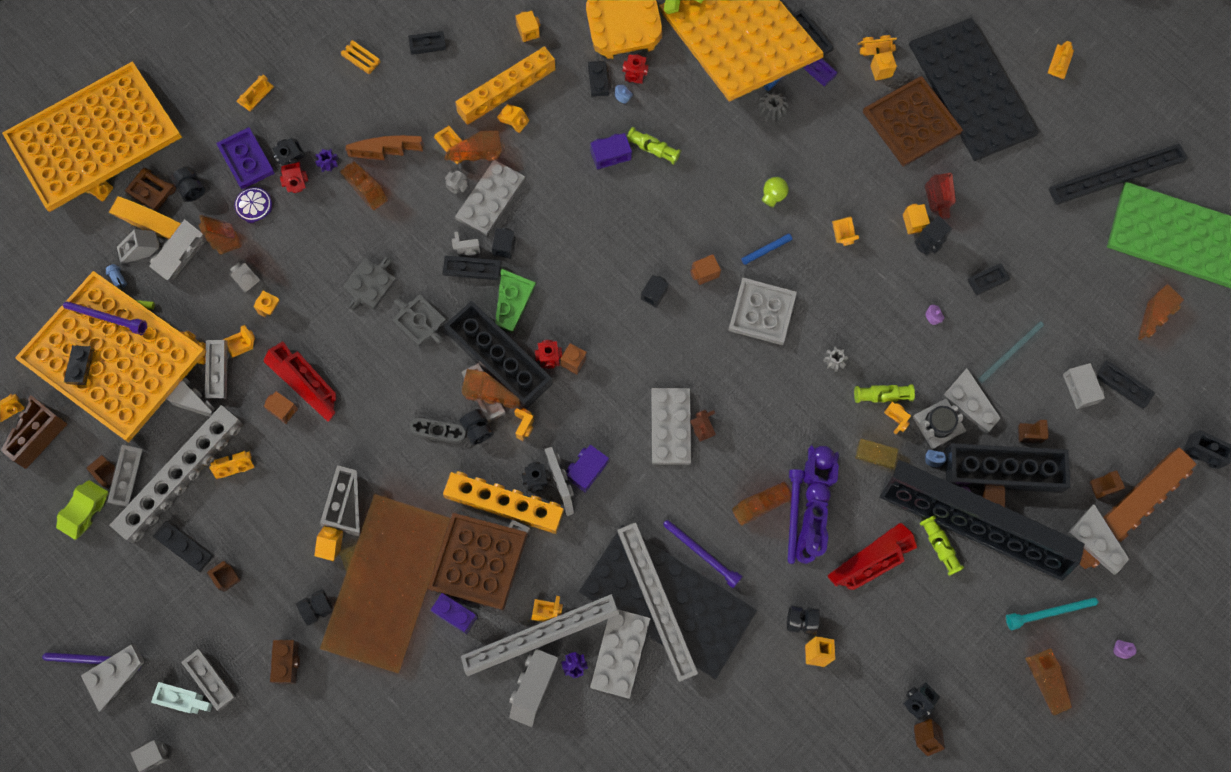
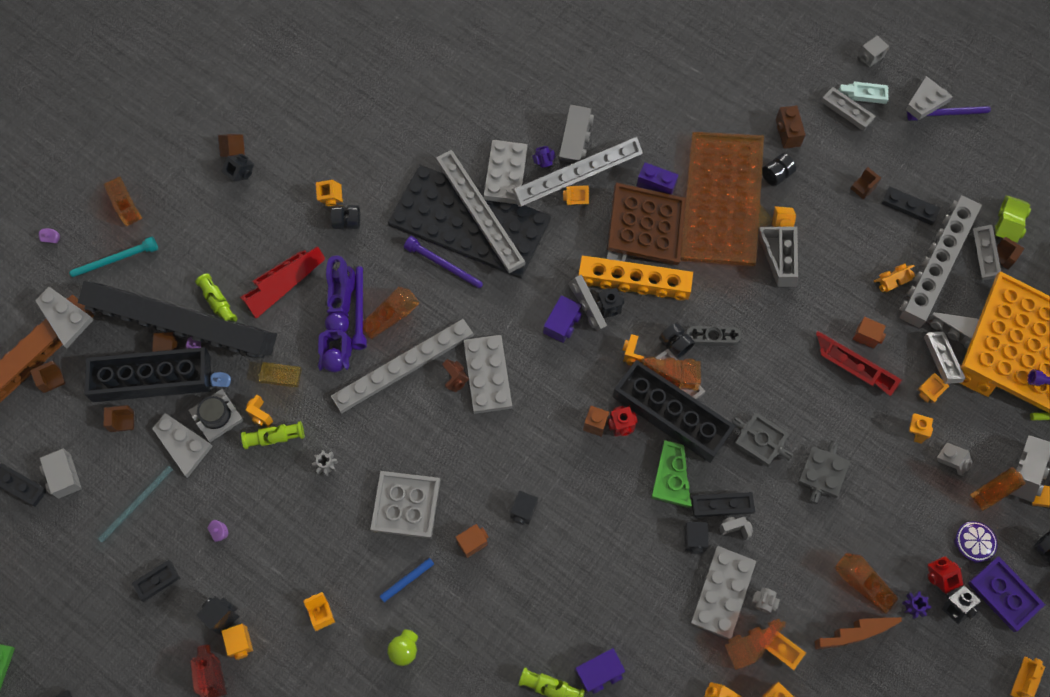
camera: 175 degrees right, 5 degrees down
(753, 447) = (401, 366): none -> light grey plate

